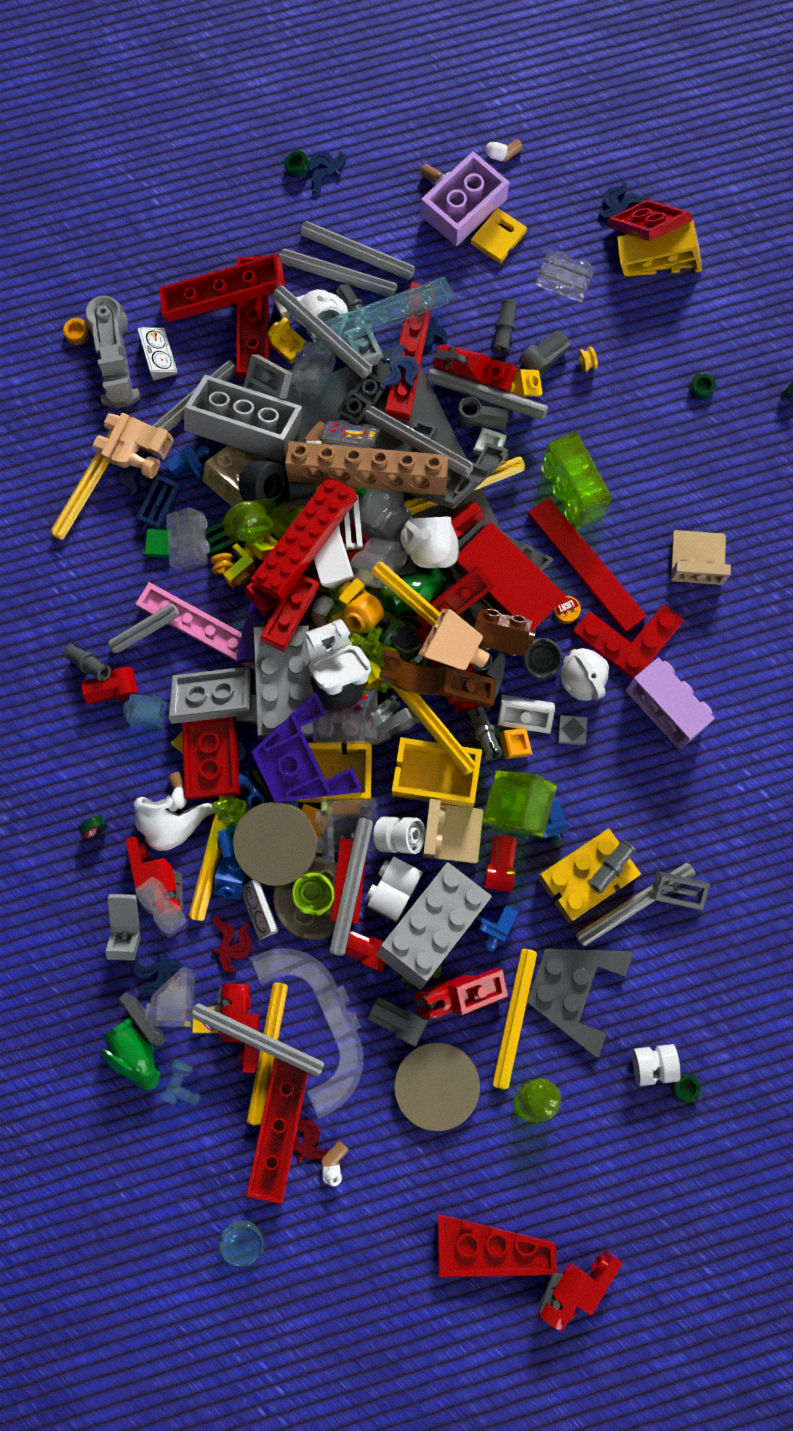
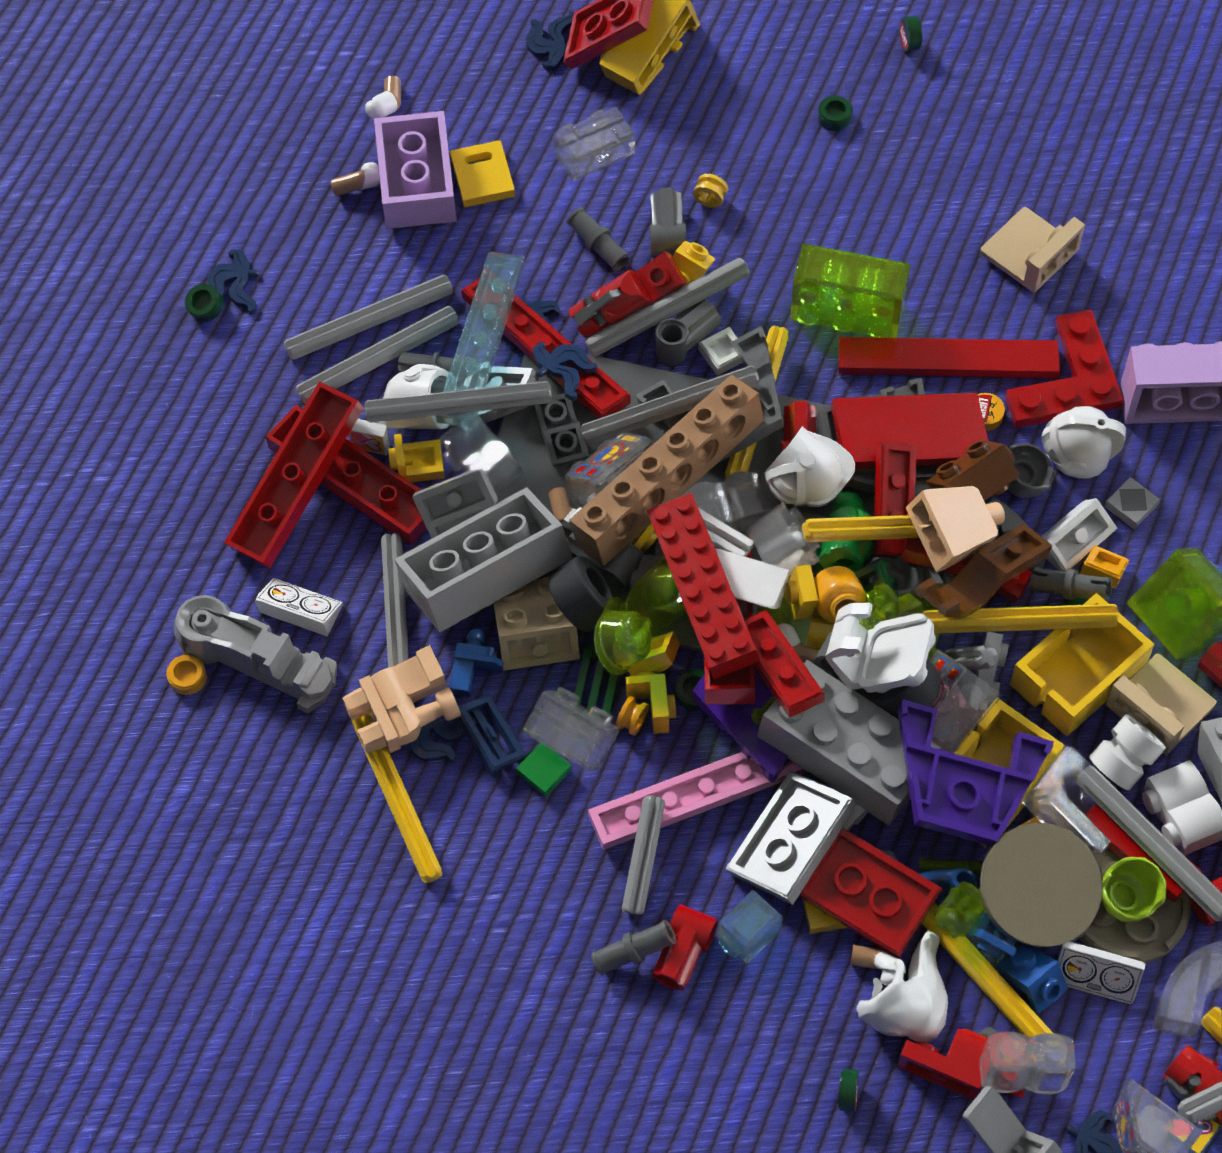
camera: 50 degrees left, 15 degrees down
(238, 951) = (1130, 1037): dark red piece -> none

